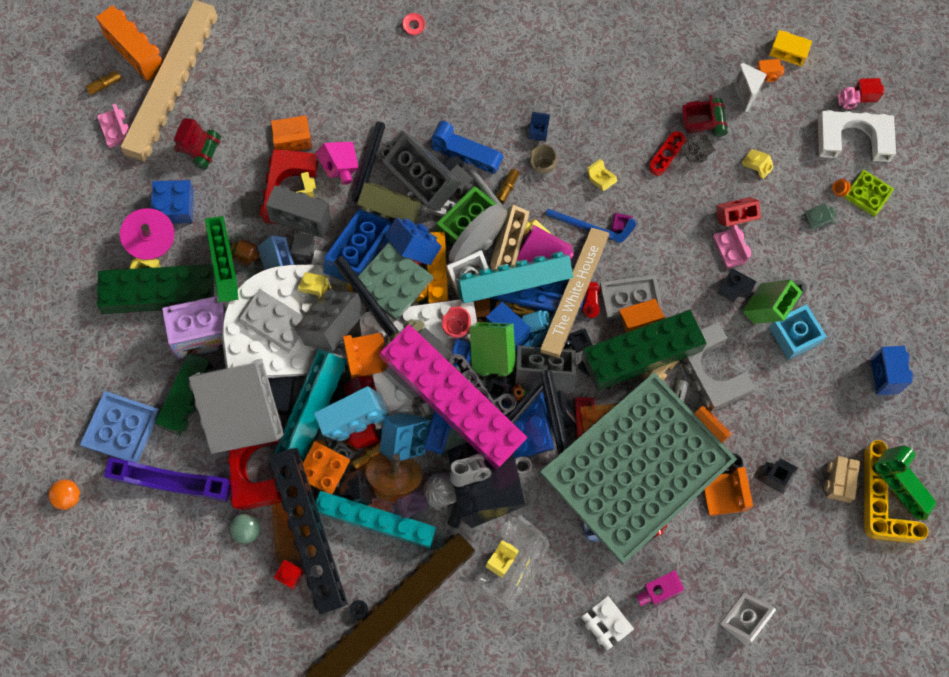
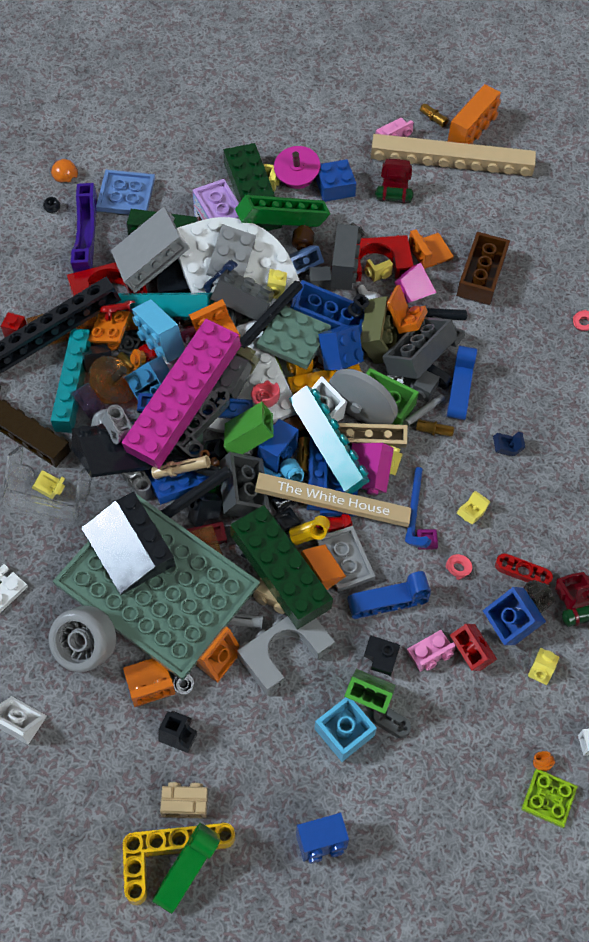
camera: 80 degrees right, 10 degrees down
(107, 515) = (51, 205): none -> black plate
(244, 528) = (53, 291): sand green hair -> none
(299, 324) = (230, 265): none -> dark blue piece
(309, 459) = (108, 309): none -> red piece
(332, 91) = (483, 268): none -> reddish brown brick
(336, 205) = (369, 294): none -> white arm
(361, 213) = (359, 303): none -> black bush
(369, 445) = (138, 358): none -> orange plate
(380, 173) = (404, 318): none -> orange bracket
(528, 396) = (172, 469): none -> tan pin
(543, 158) = (473, 452): dark tan hair -> none
(601, 482) = (128, 544): none -> slope
(602, 313) = (309, 531): none -> yellow piece
(654, 197) = (461, 559): none -> coral piece
(668, 583) = (33, 625): dark pink torso -> none
(678, 270) = (391, 597): none -> blue beam
(686, 543) = (82, 638): none -> light grey wheel
(718, 170) = (514, 616): none -> blue brick
(821, 215) = (501, 743): sand green bracket -> none

